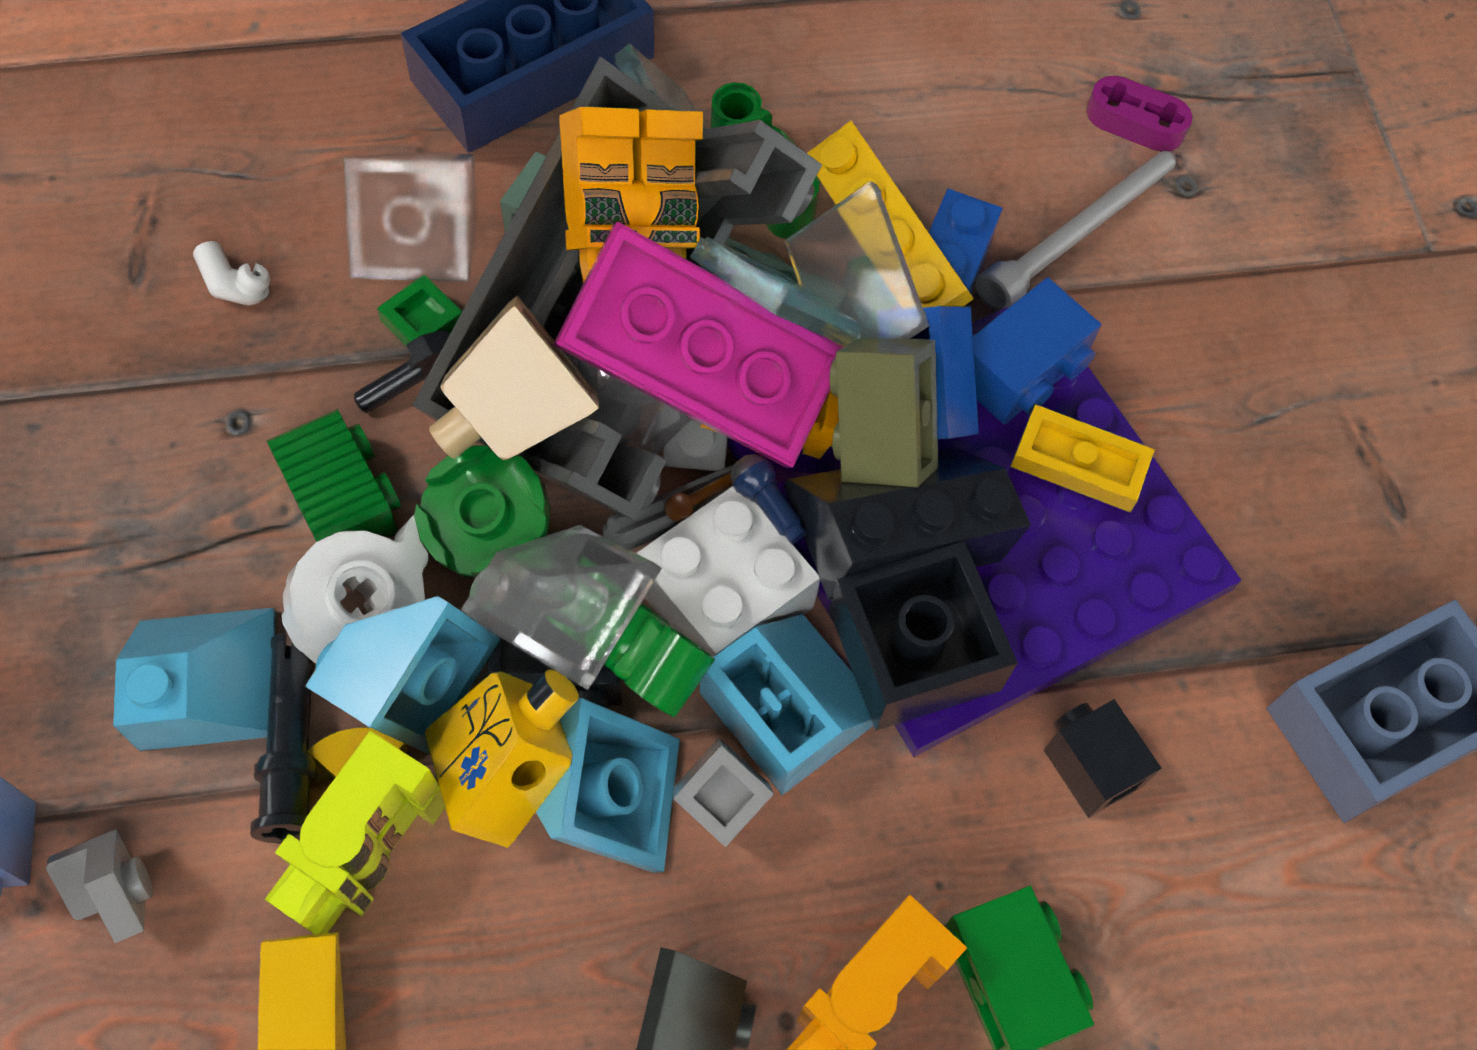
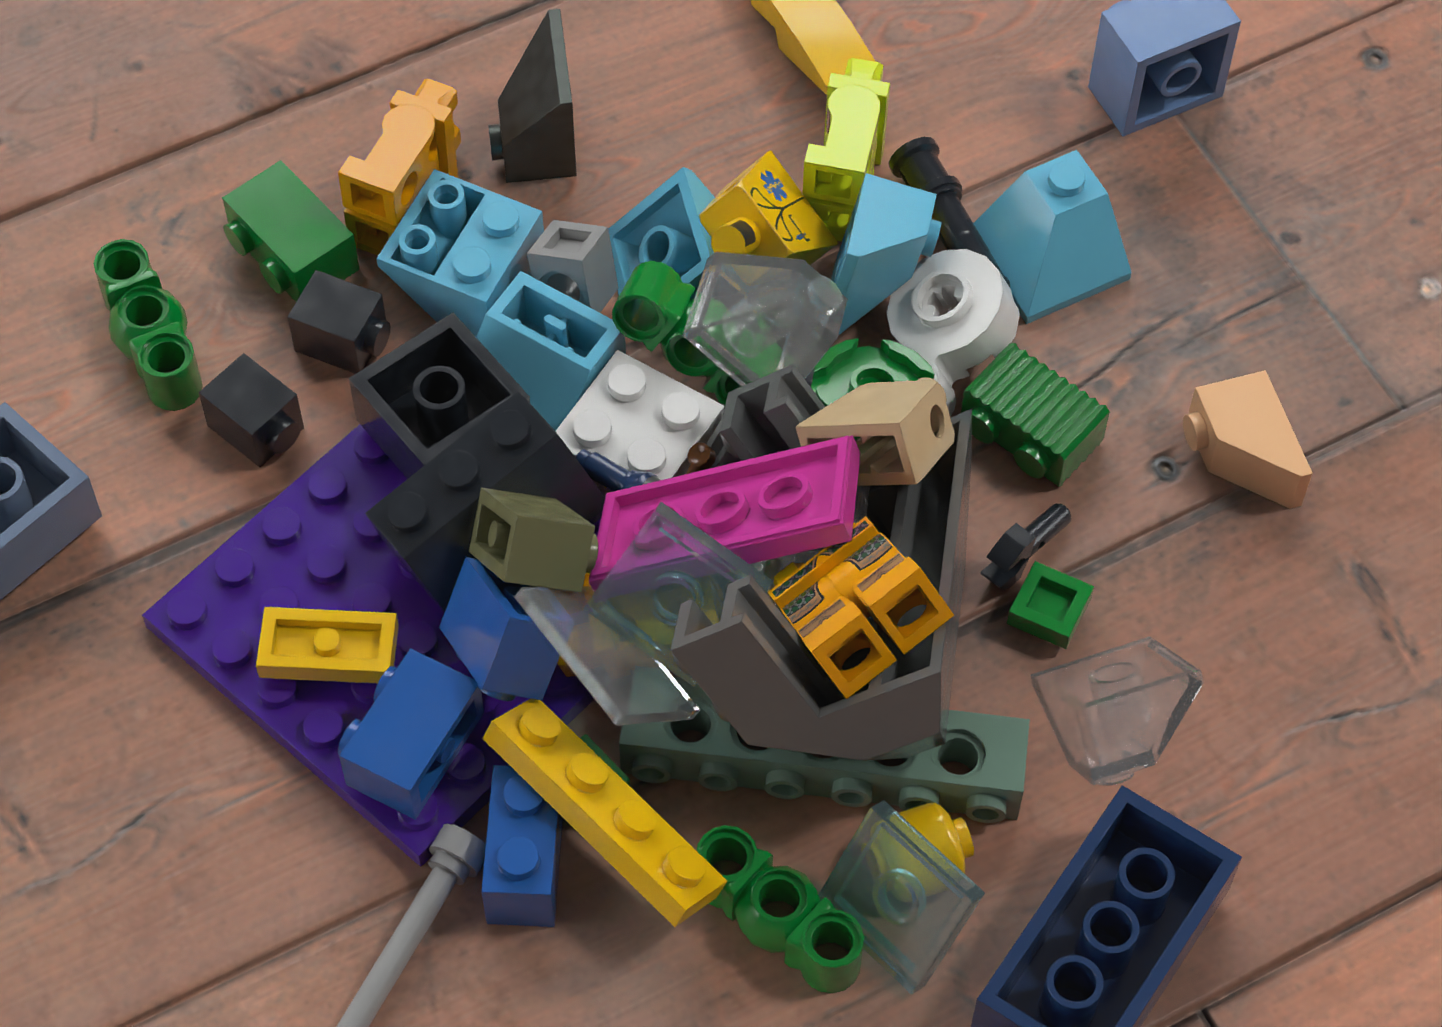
camera: 165 degrees right, 5 degrees down
(105, 881) = (1013, 77): light grey bracket -> none
(148, 399) = (1248, 438): none -> light nougat slope
(228, 283) = (1263, 582): white arm -> none
(832, 864) = (460, 248): none -> medium azure slope
(986, 832) = (339, 323): none -> black brick
(1194, 940) = (136, 299): none -> green piece

